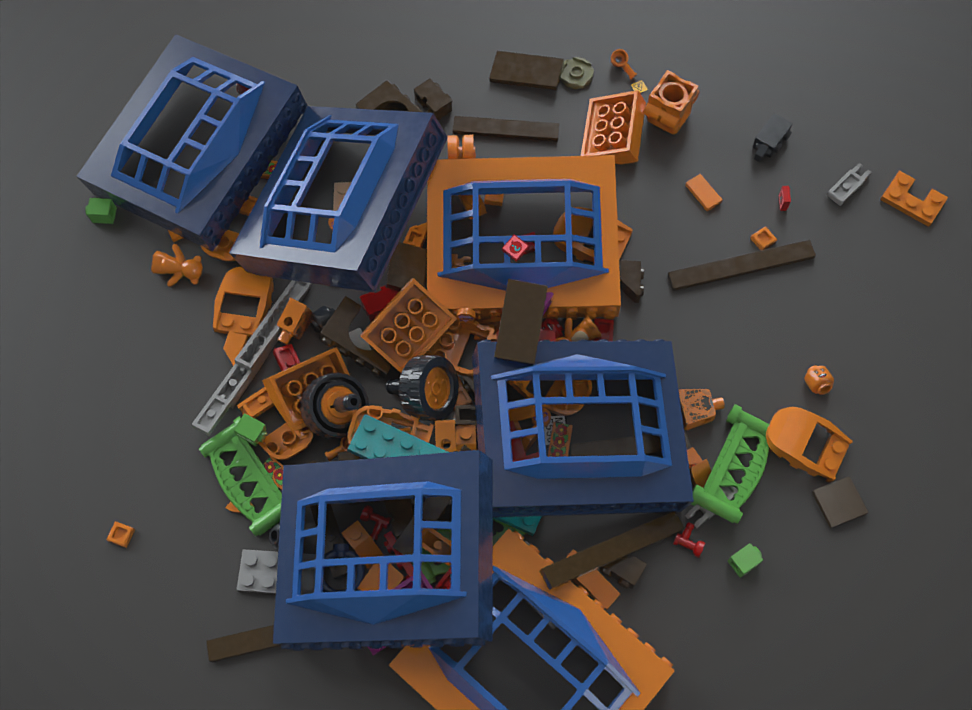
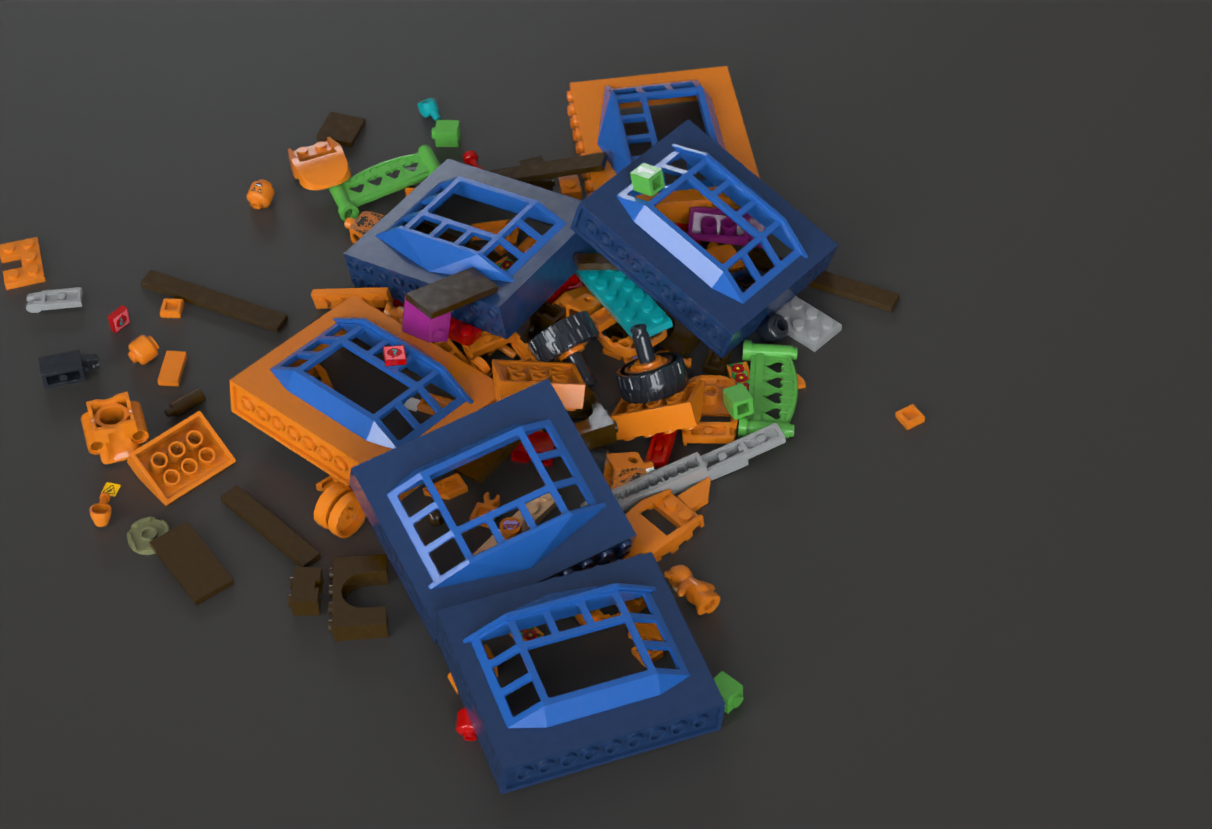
camera: 140 degrees left, 20 degrees down
(439, 513) = (647, 179): none -> bright green brick
(640, 326) = (331, 298): none -> orange plate
(661, 171) = (185, 403): none -> dark brown cylinder
(736, 185) = (143, 349): none -> orange head
(791, 582) = (429, 108): none -> teal piece

